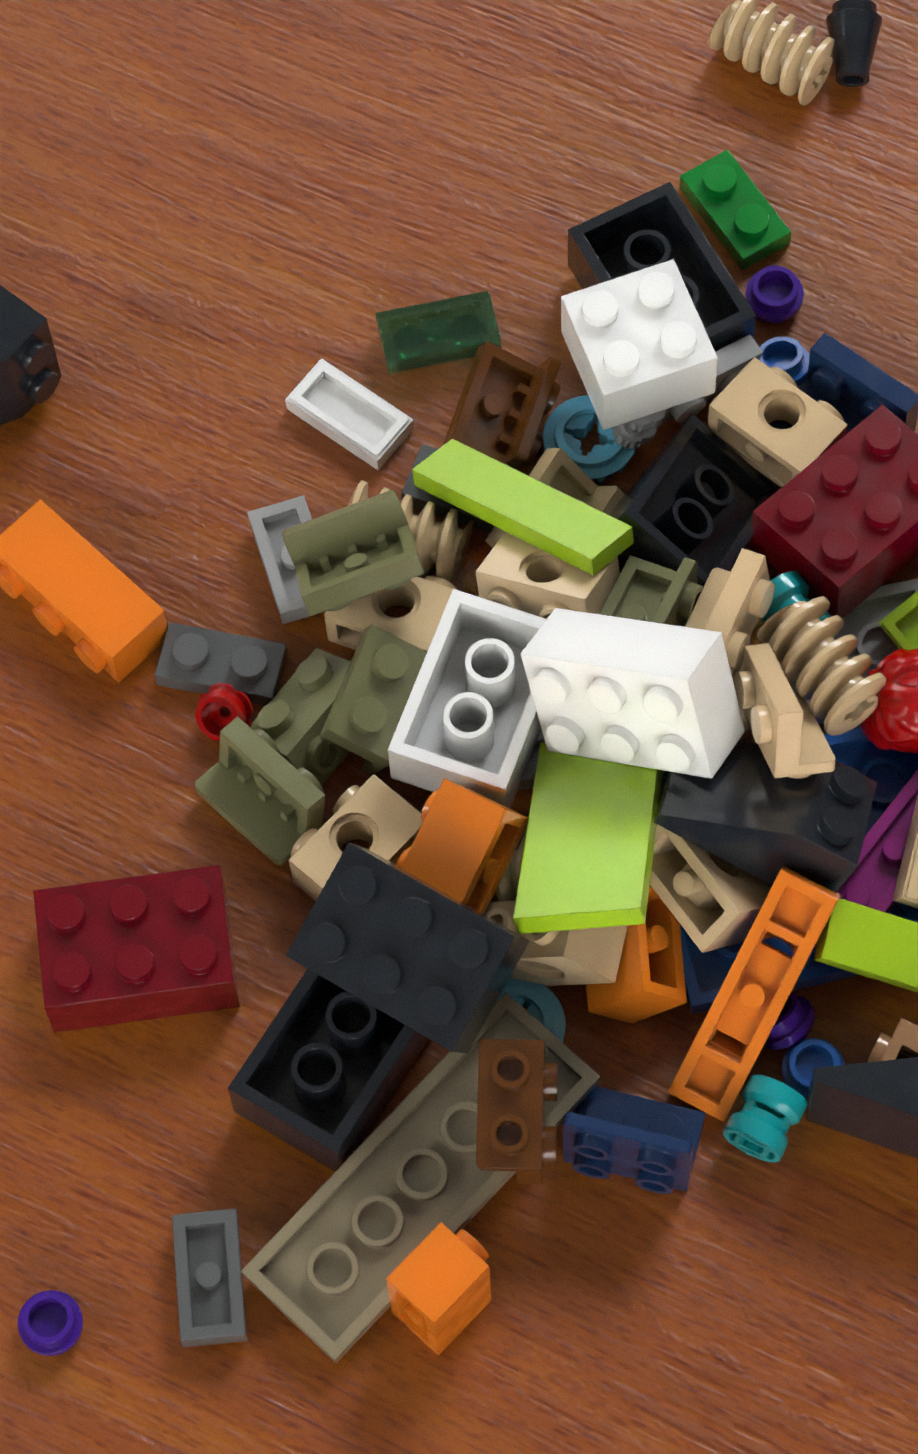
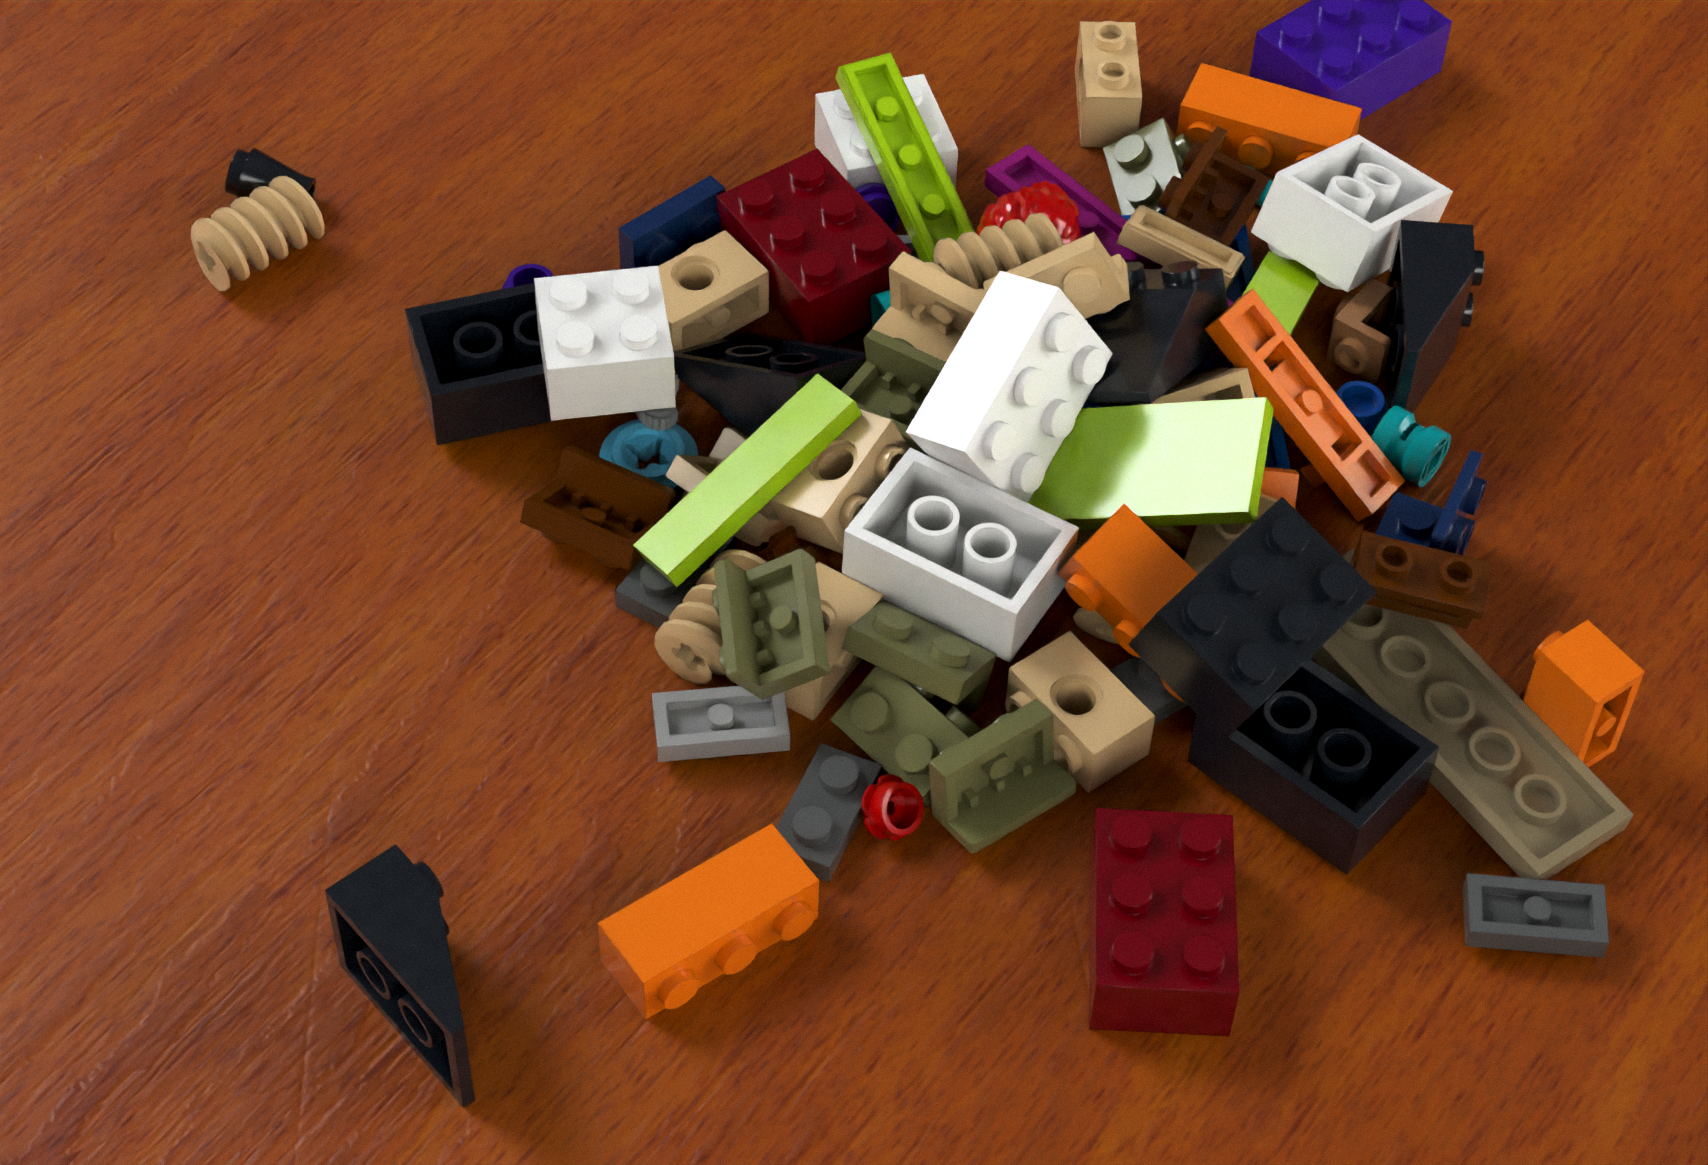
camera: 85 degrees left, 15 degrees down
(50, 1323) = (1573, 1072): dark purple plate -> none
(349, 414) = (551, 654): white tile -> none
(436, 331) = (484, 556): clear green plate -> none
(735, 209) = (384, 308): green plate -> none

